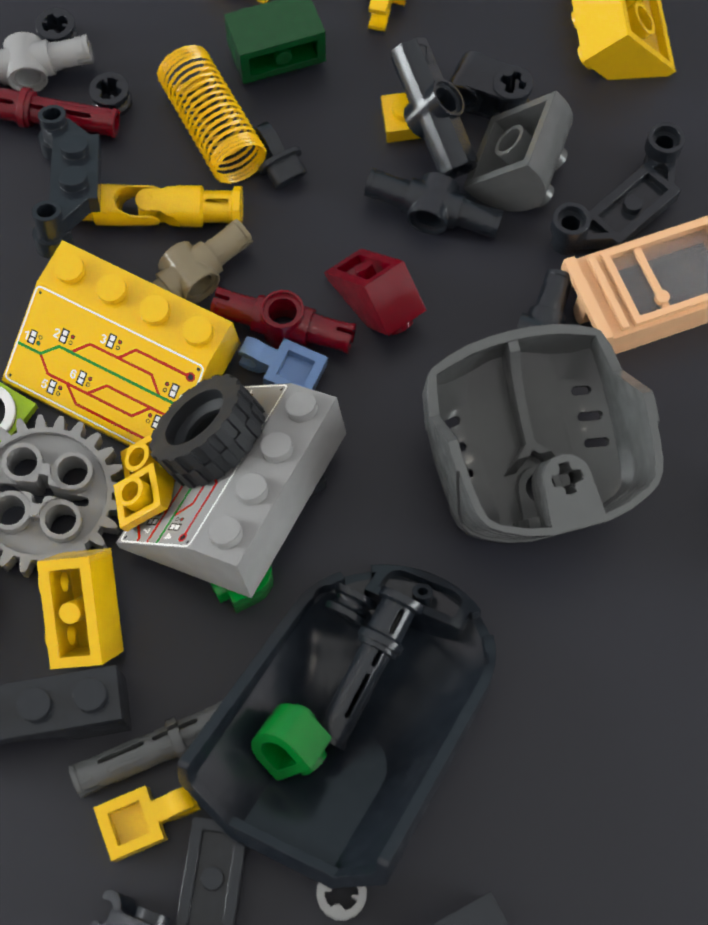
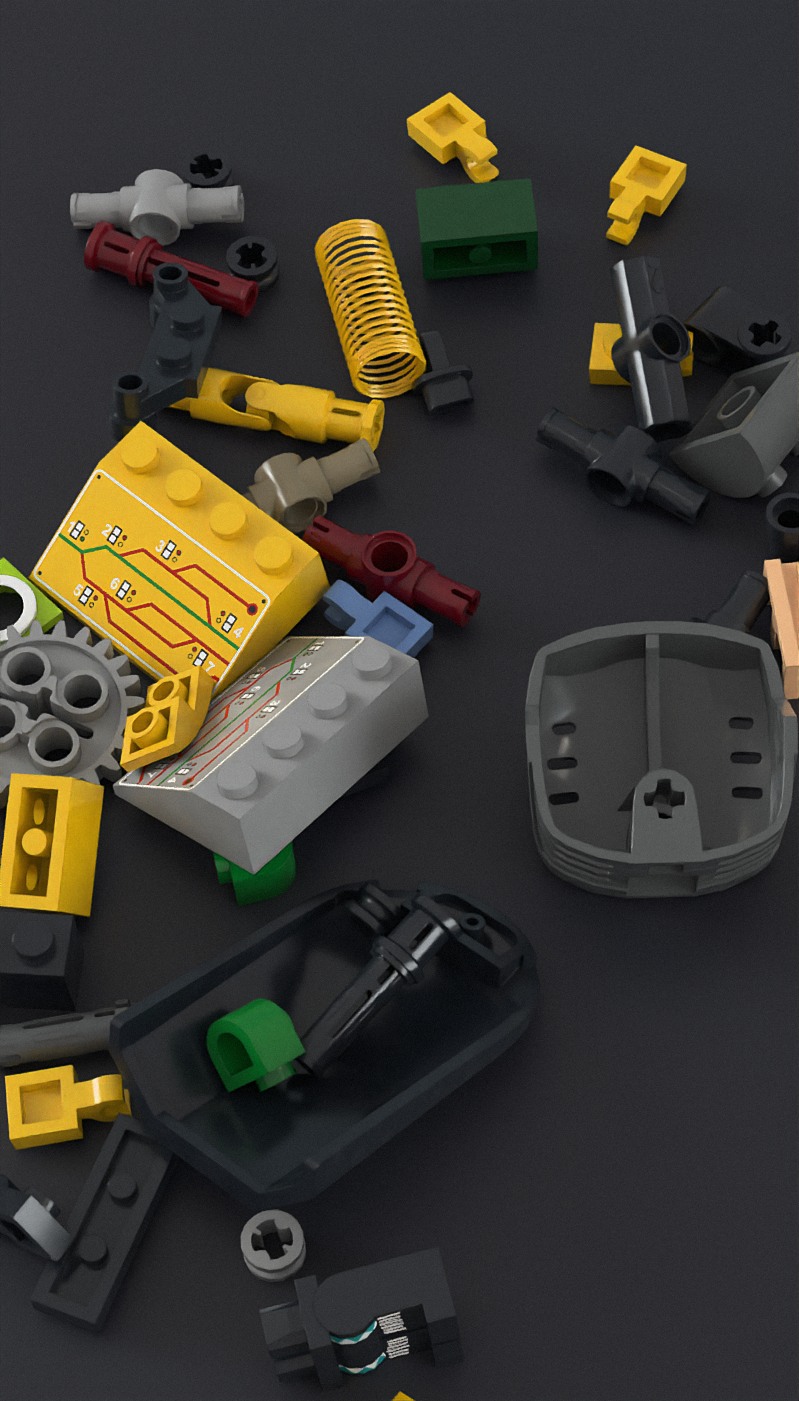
camera: 20 degrees right, 10 degrees down
(207, 431) = (253, 671): black tyre -> none
(378, 290) = (520, 559): dark red slope -> none

